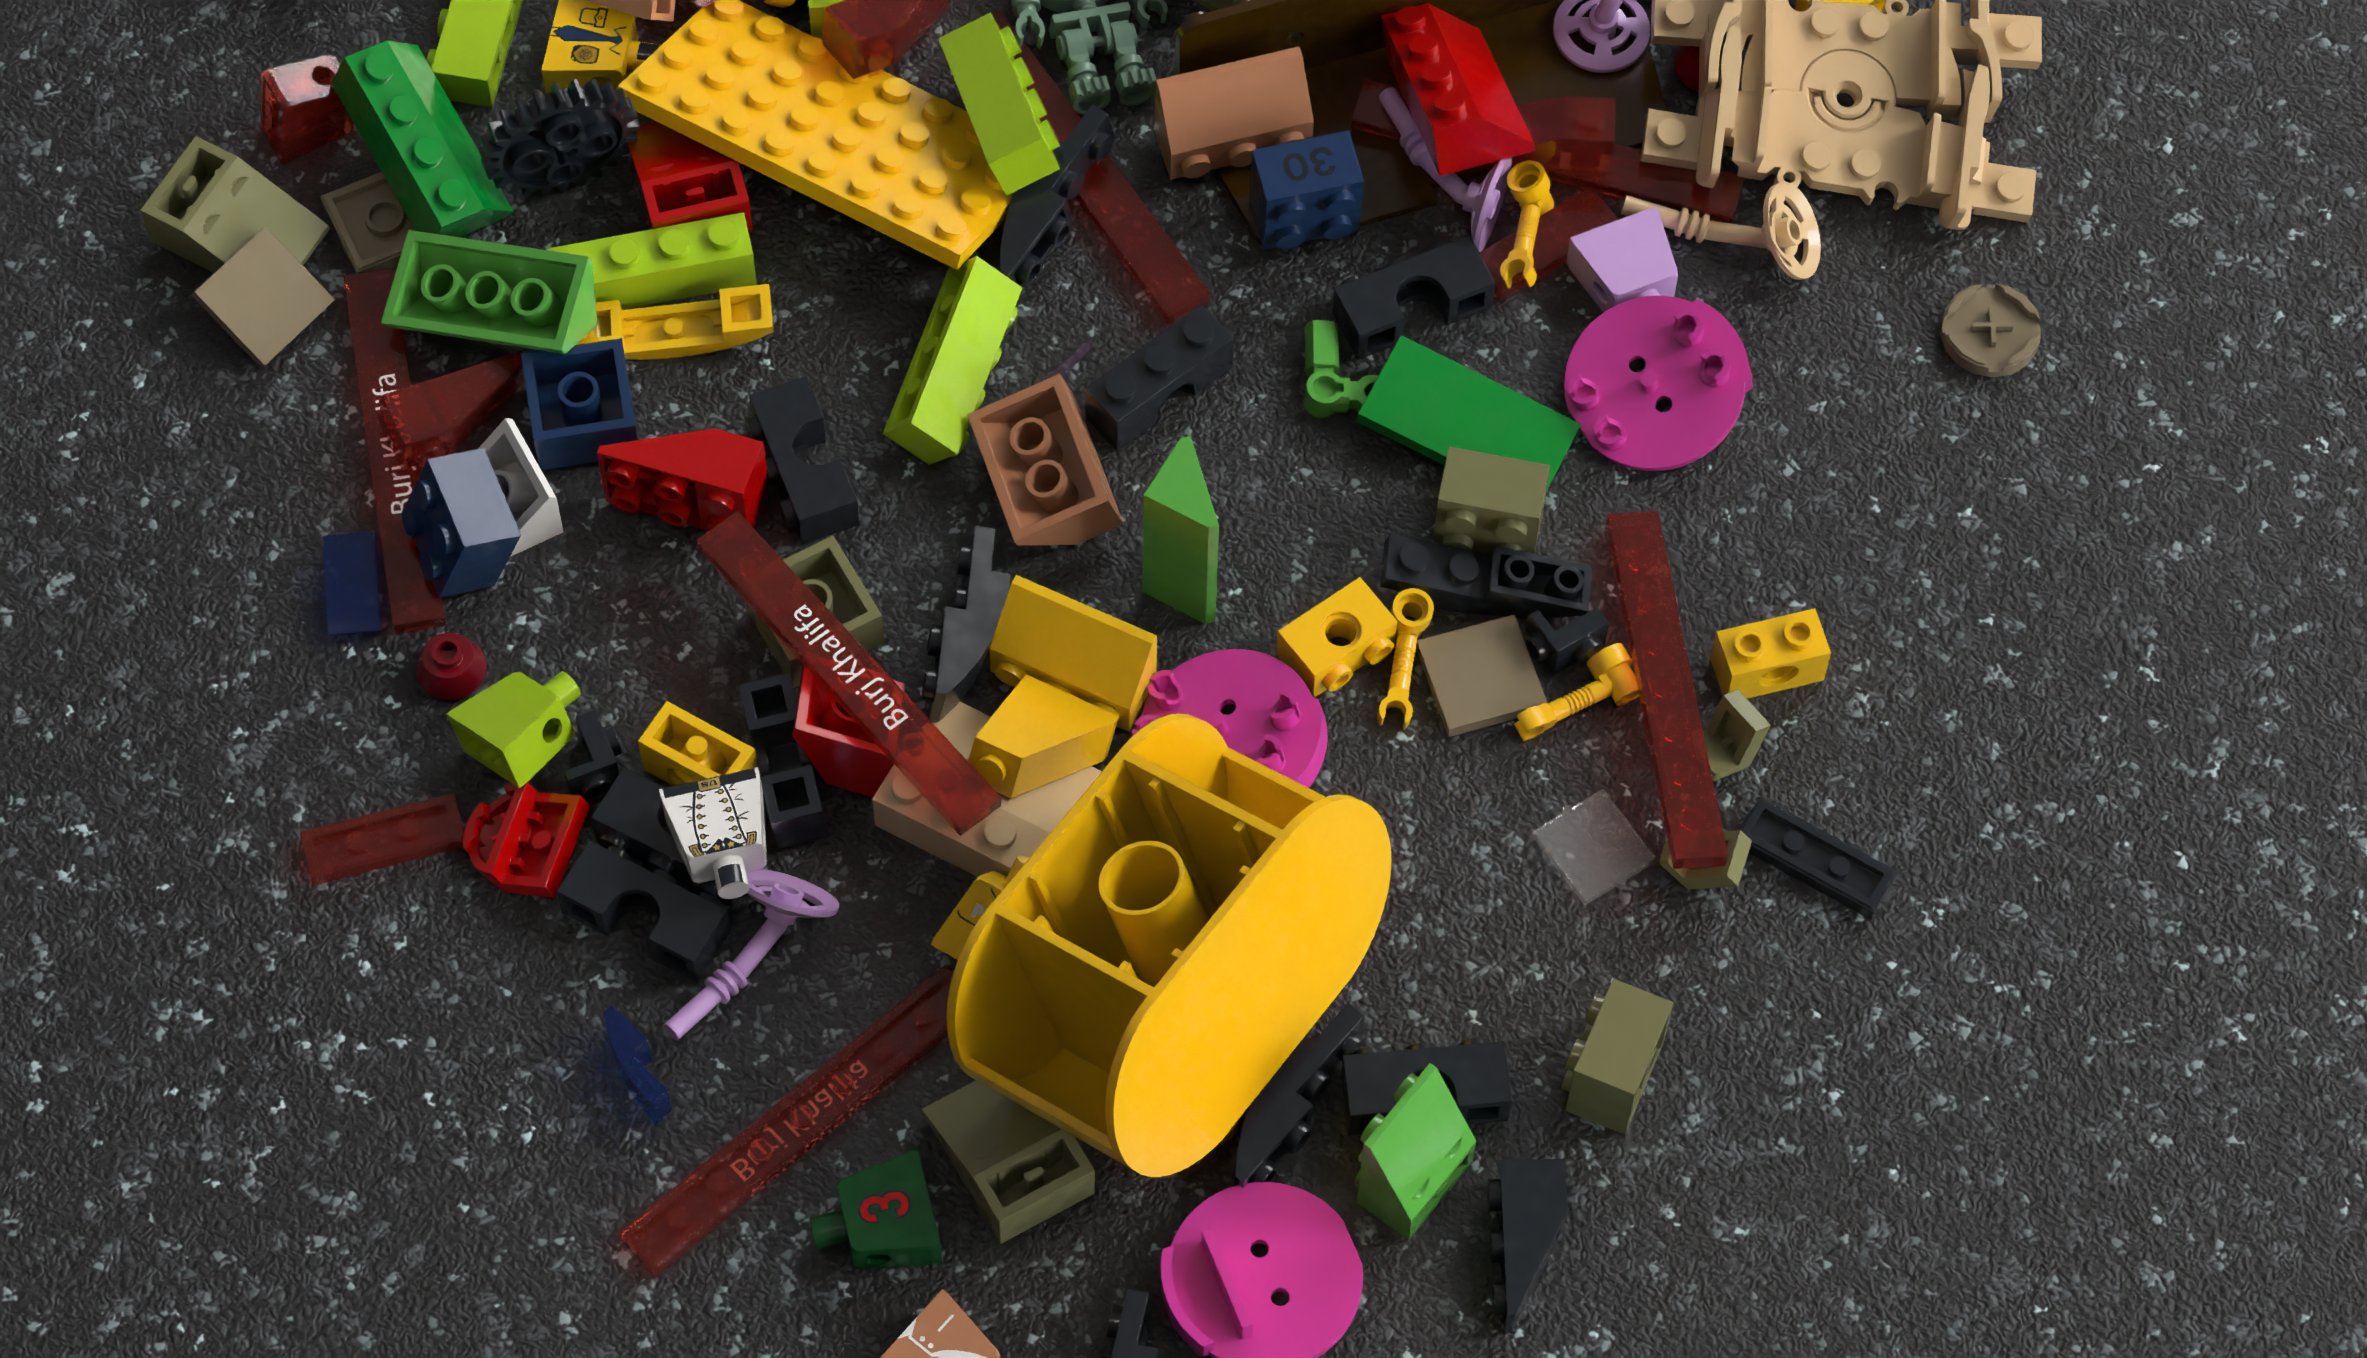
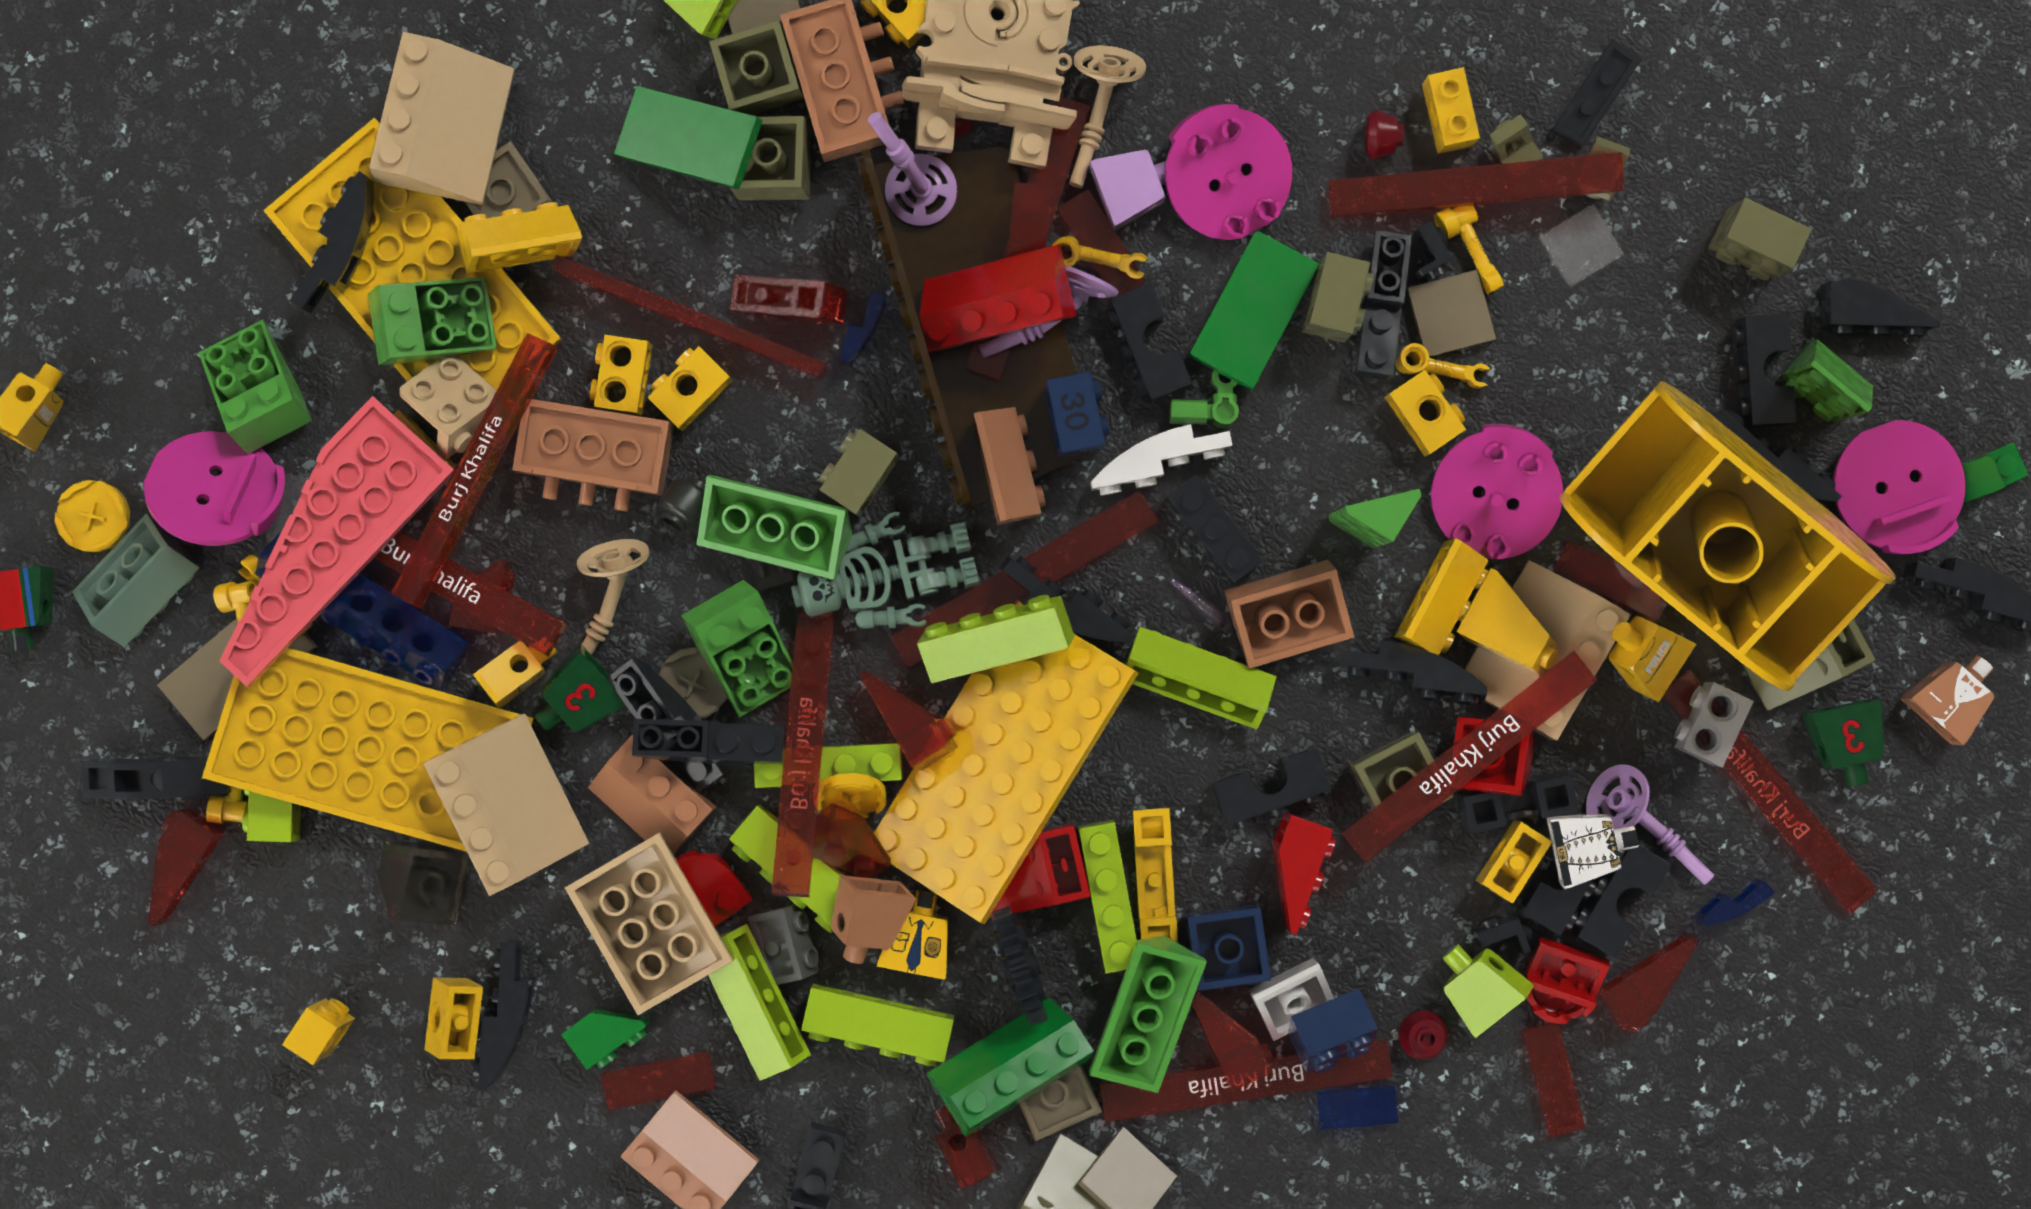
camera: 90 degrees left, 25 degrees up
(514, 947) = (1643, 987): none -> clear red slope
(892, 1026) = (1721, 729): none -> light grey brick
(1259, 305) = (1144, 460): none -> white slope
(1728, 570) = (1382, 134): none -> dark red cone

